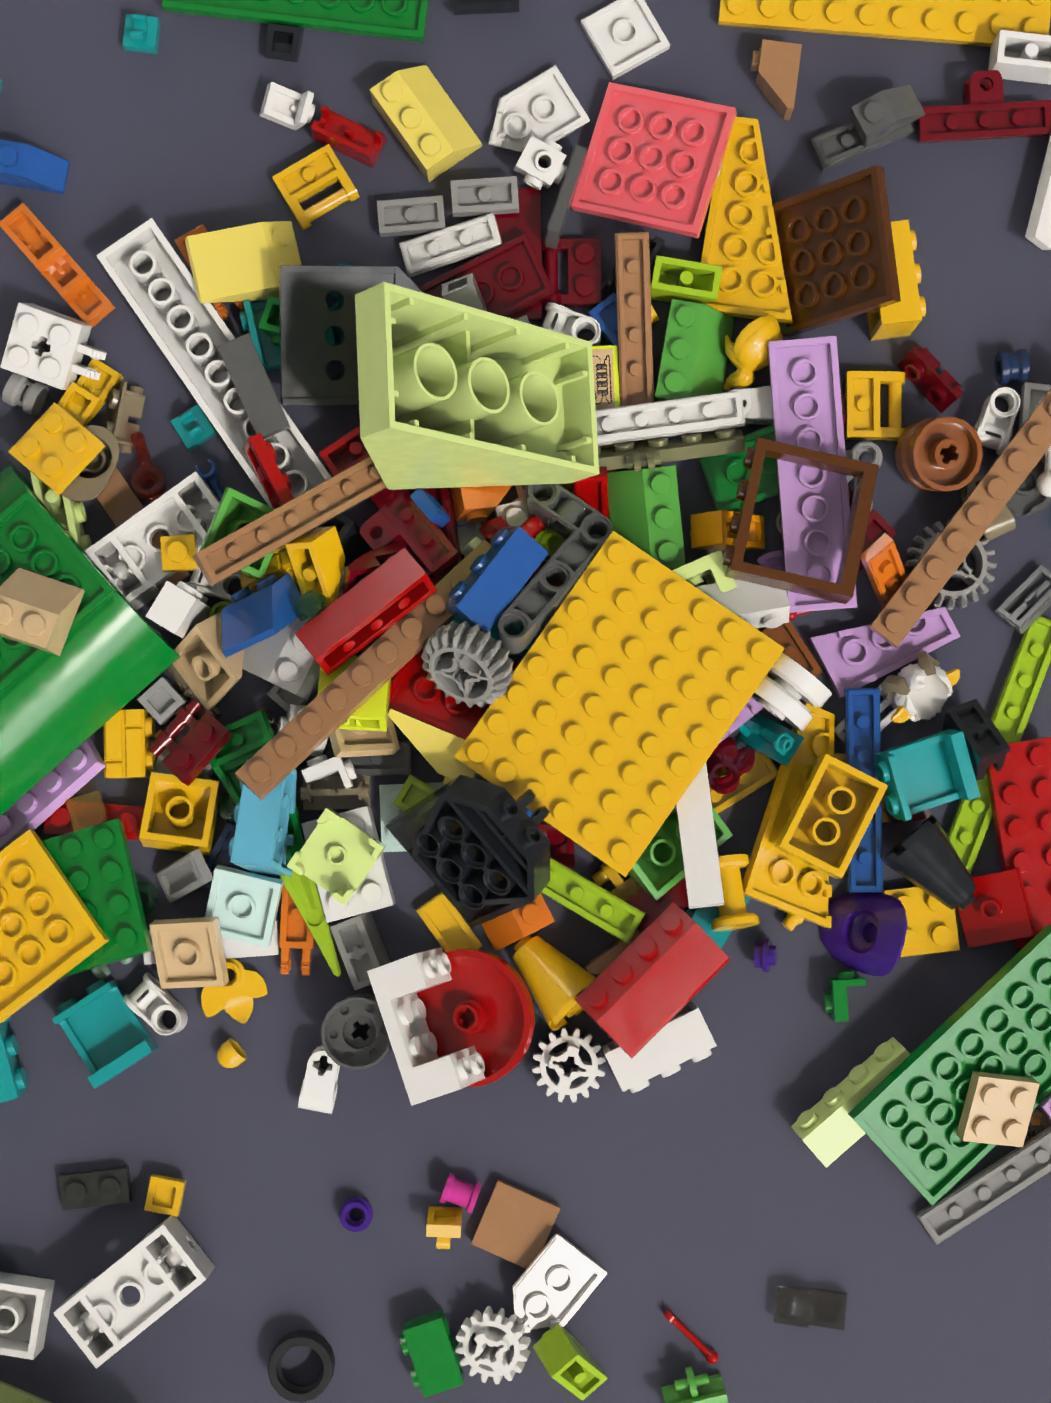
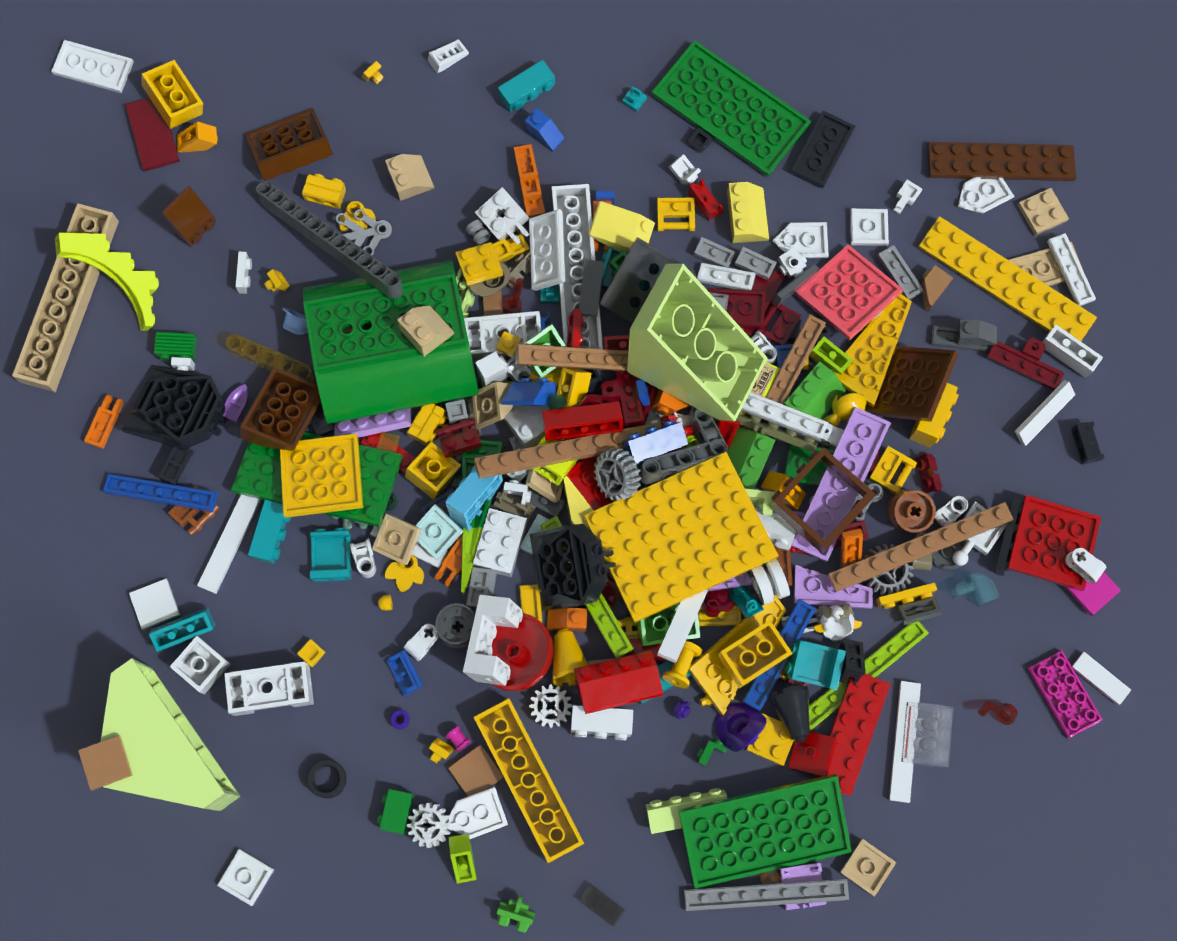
camera: 25 degrees right, 10 degrees down
(95, 1188) = (278, 630): pearl dark grey plate -> none
(149, 363) = (547, 250): none -> white tile
(184, 875) = (416, 501): light grey tile -> none
(189, 221) = (605, 196): none -> blue tile
(324, 1141) = (404, 673): none -> blue hinge
(337, 856) = (498, 531): yellowish green panel -> none
(602, 1196) = (528, 780): none -> yellow brick
(710, 1355) = (536, 900): red hinge -> none
(713, 81) = (900, 272): none -> light grey plate
(997, 1109) = (756, 855): tan plate -> none
(1001, 588) = (906, 596): none -> yellow plate
(1012, 366) = (973, 490): dark blue wheel -> none

